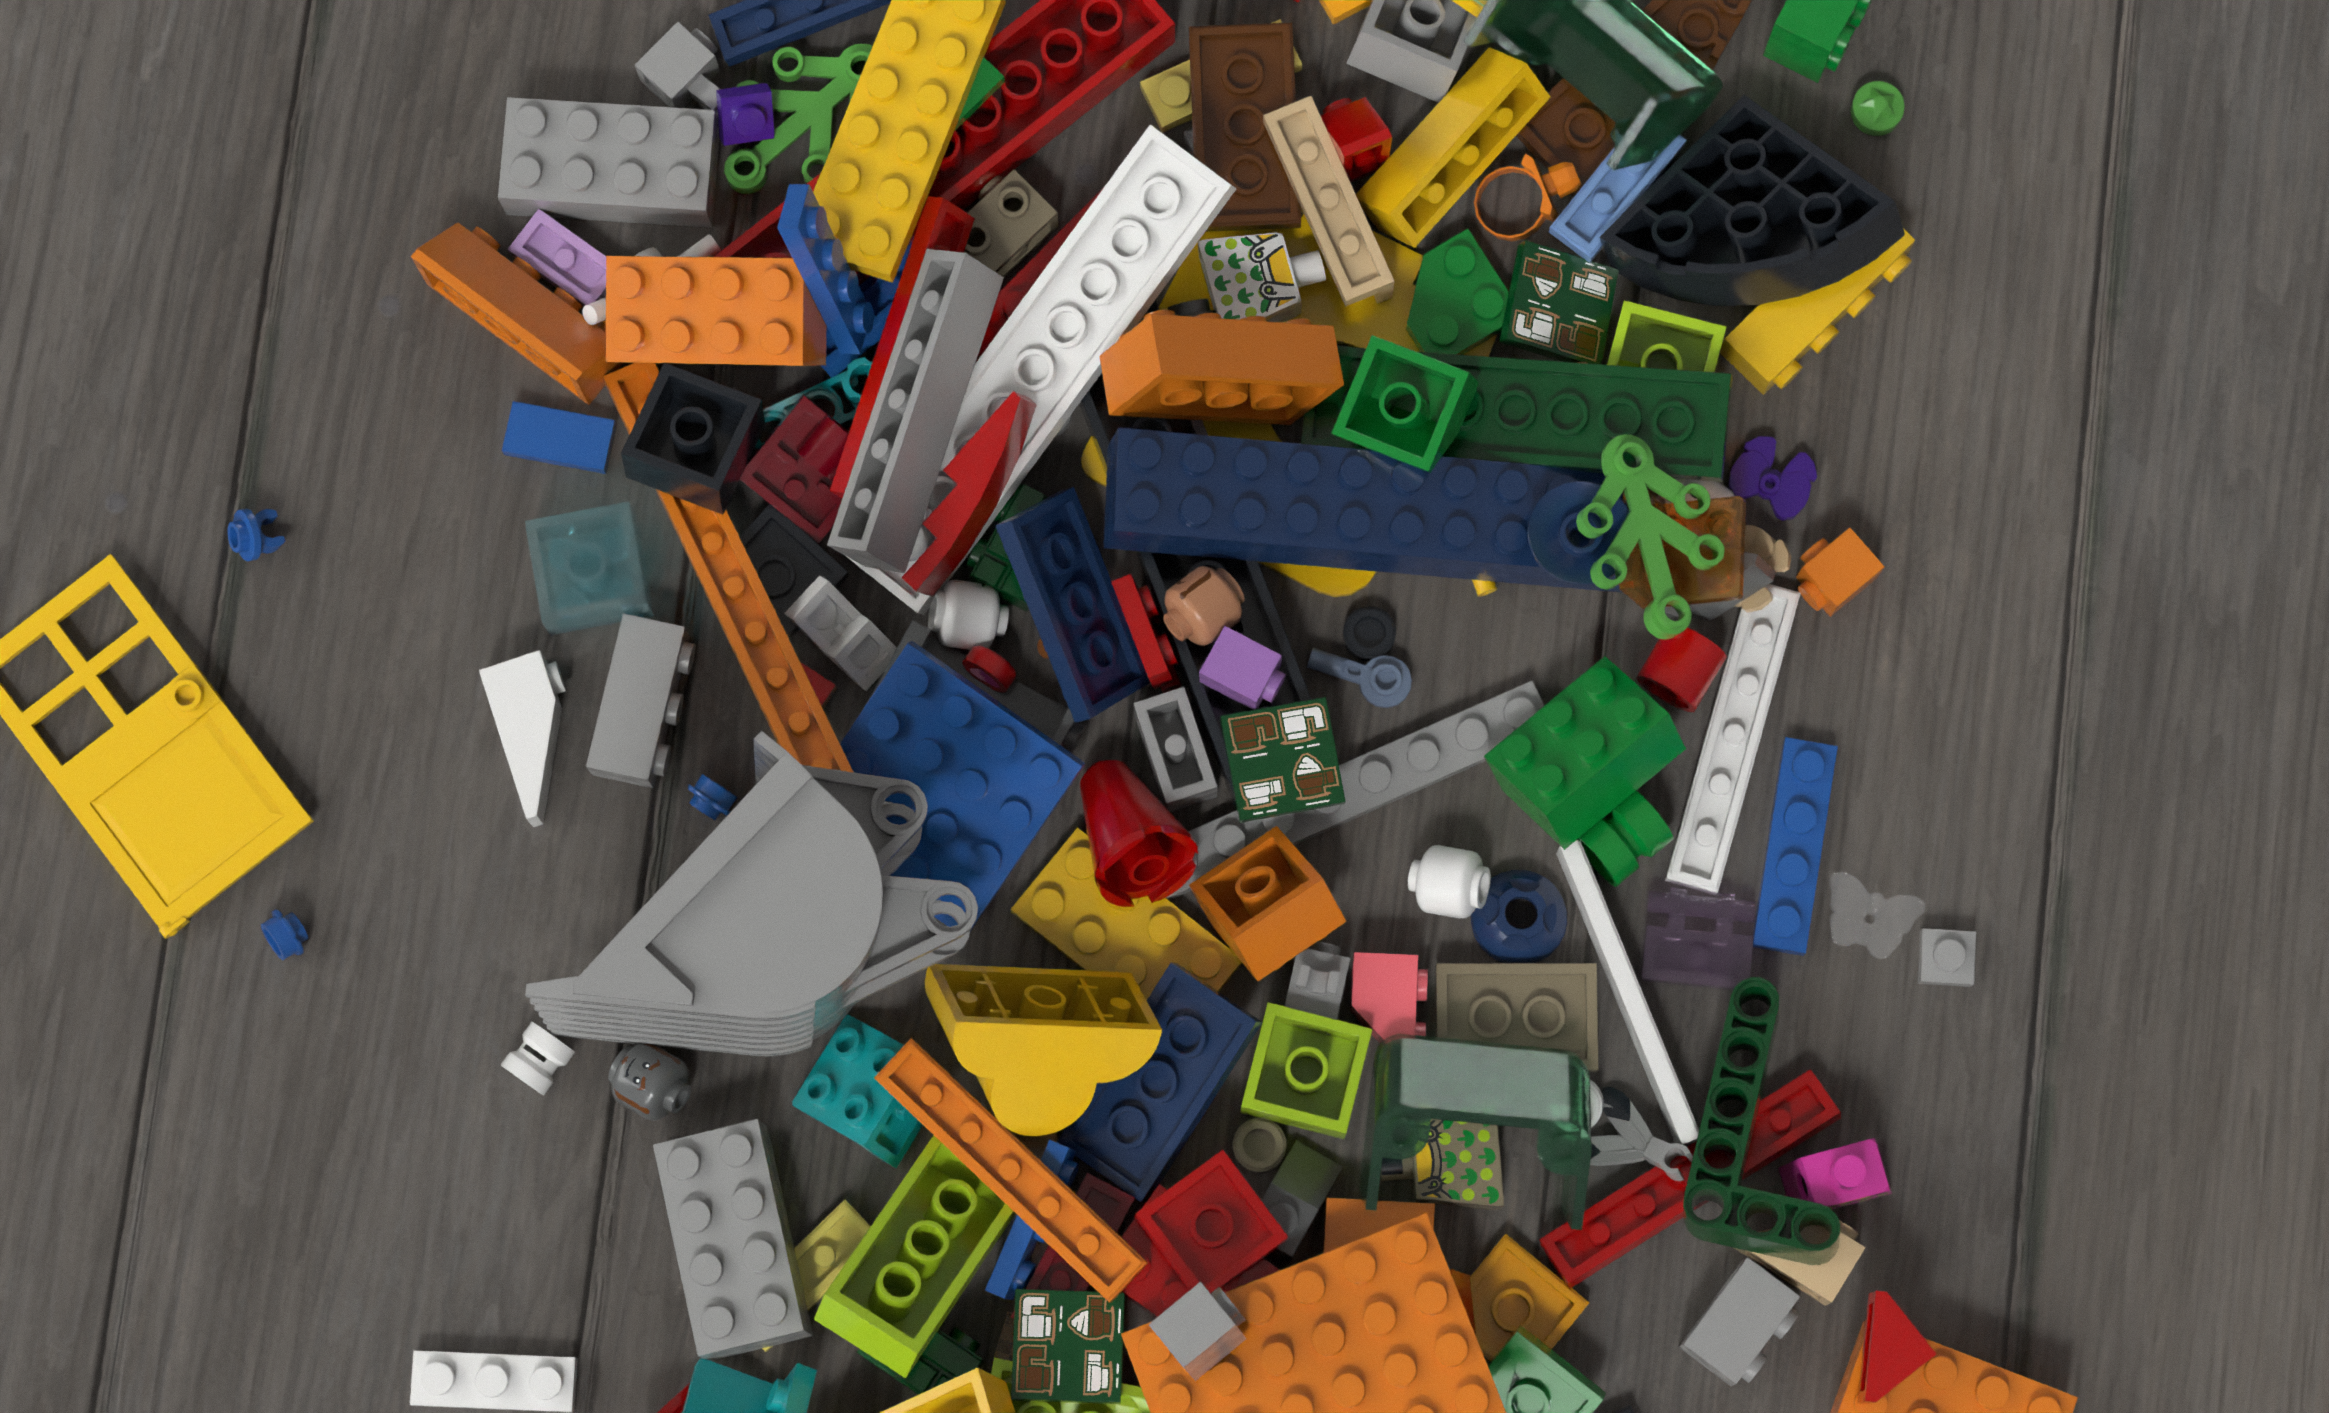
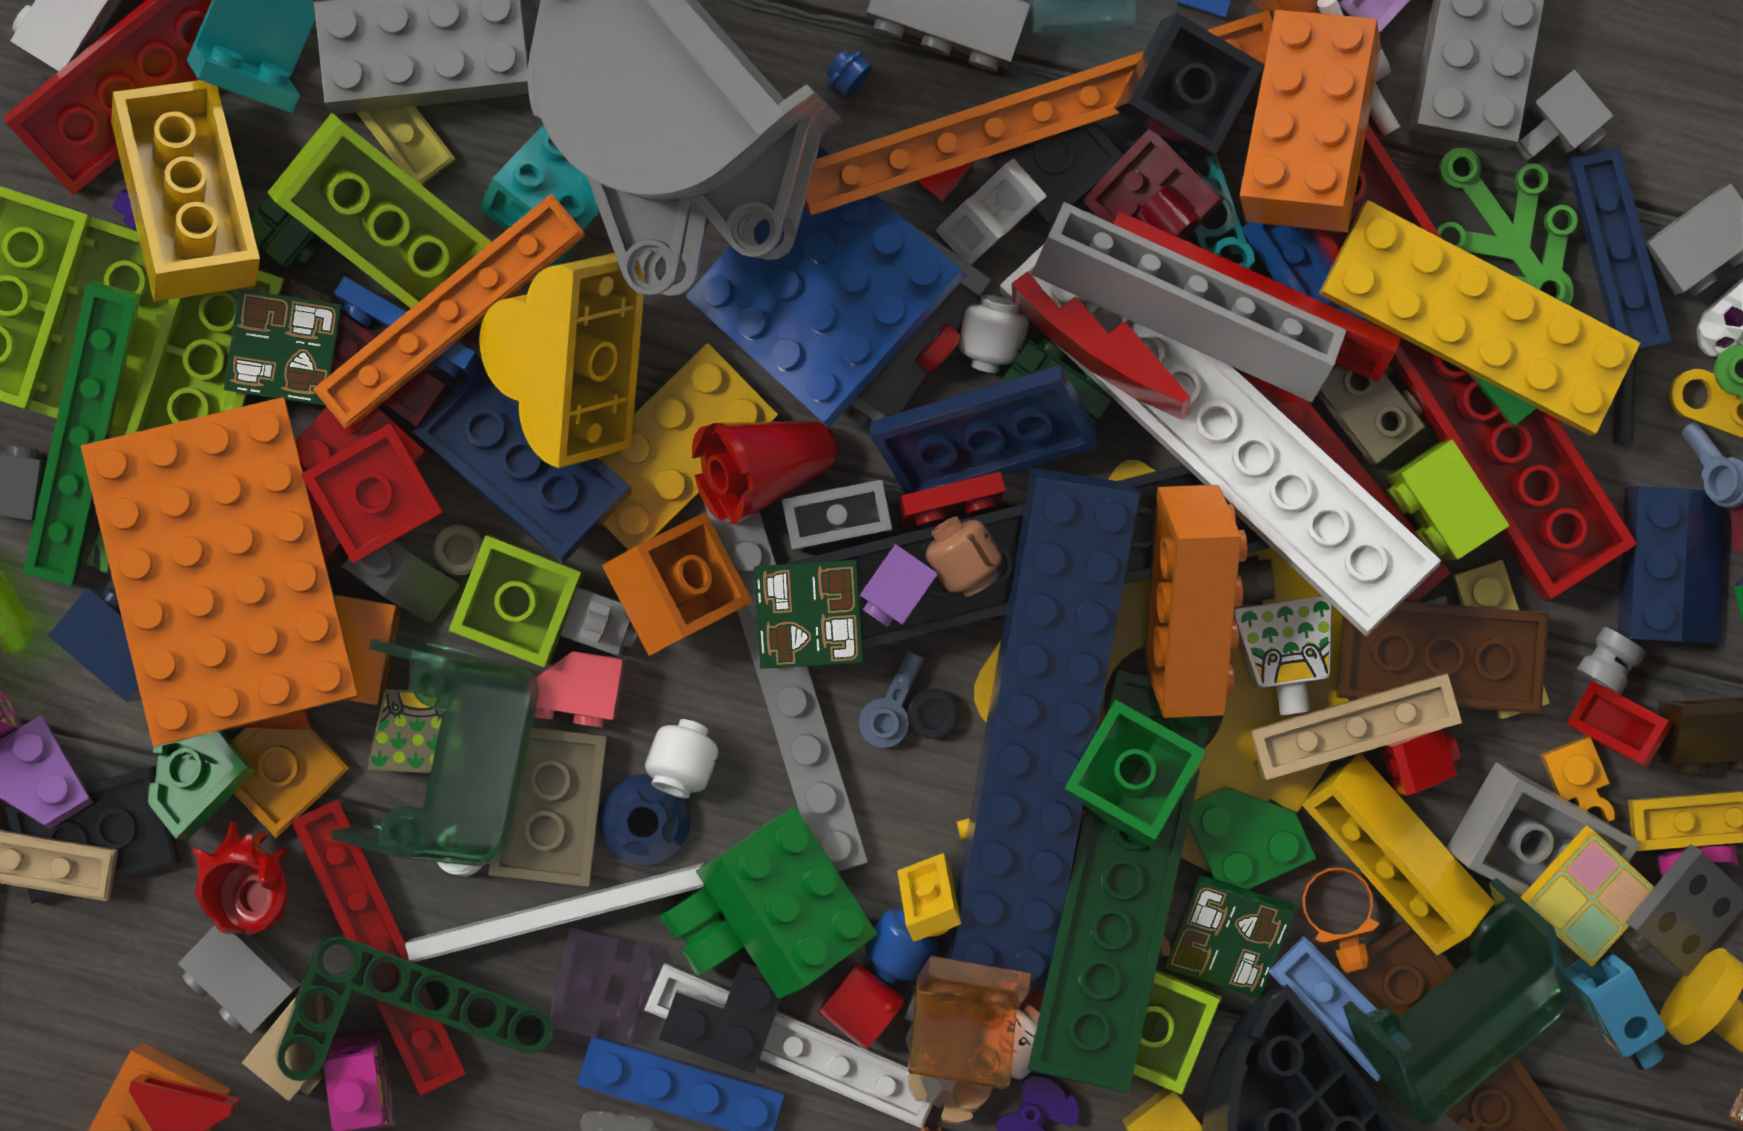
camera: 95 degrees right, 10 degrees up
(745, 114) = (1512, 172): dark purple plate -> none
(825, 269) = (1333, 227): blue plate -> none
(1086, 139) = (1445, 501): none -> lime brick
(1200, 1329) = (261, 467): light grey brick -> none
(1555, 520) = (1004, 947): dark blue dish -> none
(1558, 611) = (929, 897): none -> yellow plate
(1612, 631) = (893, 950): none -> blue head
(1635, 1138) = (419, 901): light grey piece -> none
(1643, 1322) = (241, 884): none -> red hair
(1647, 527) = (986, 990): bright green plant -> none
(1729, 801) = (727, 1032): none -> black plate

